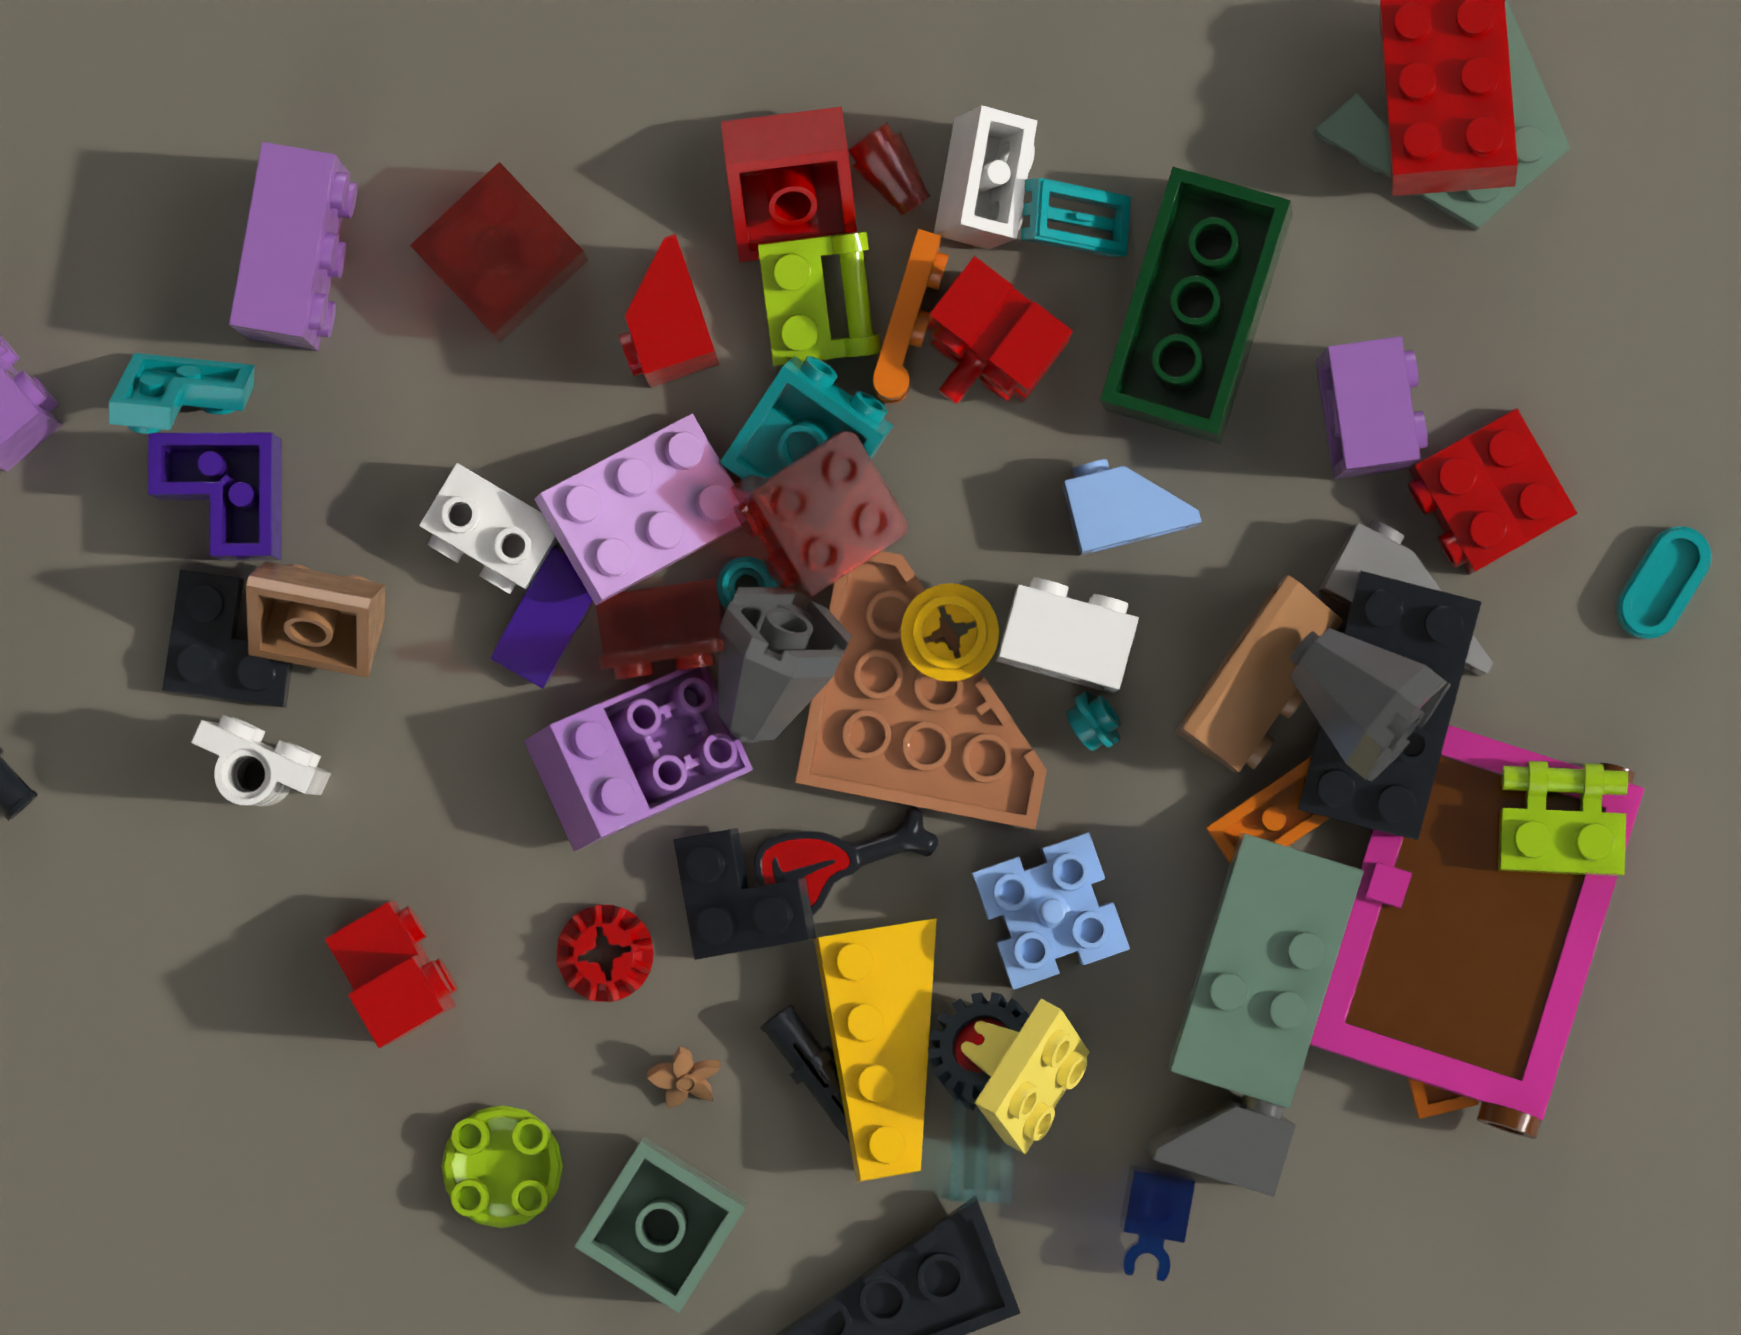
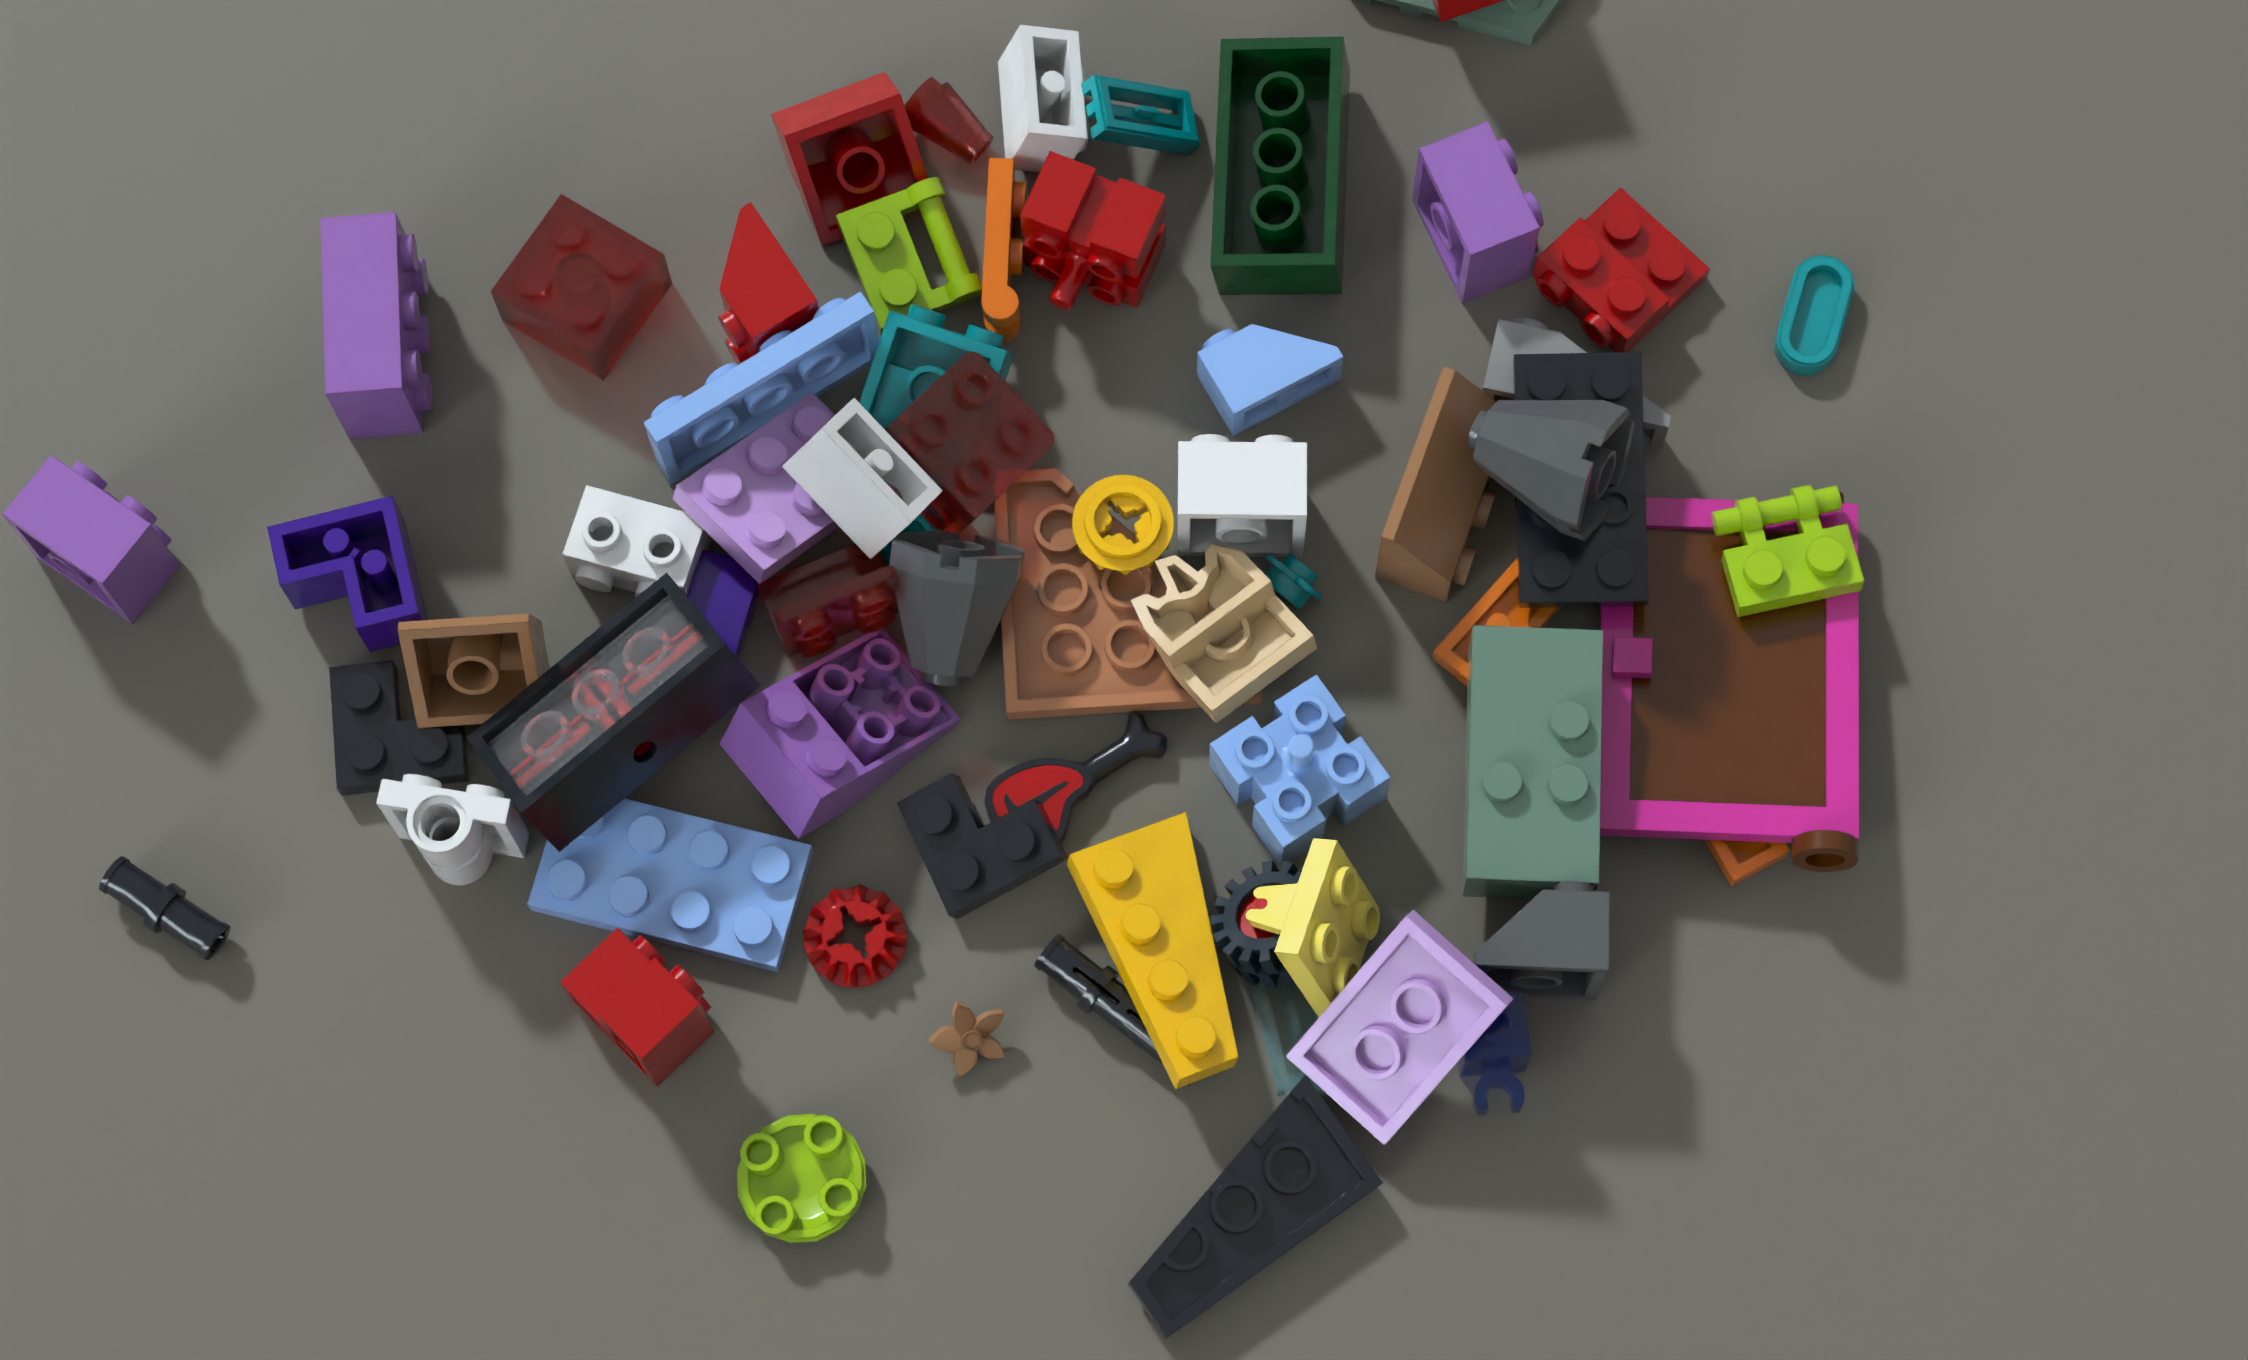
camera: 15 degrees left, 15 degrees down
(159, 385) = (265, 496): teal plate -> none
(429, 700) = (612, 712): none -> black brick
(449, 853) = (678, 883): none -> light blue plate
(621, 415) = (746, 396): none -> light blue plate
(661, 1224) = (983, 1184): sand green brick -> none
(714, 537) = (861, 480): none -> white brick
(1013, 763) = (1222, 629): none -> tan plate
(1072, 1189) = (1399, 1027): none -> lavender plate

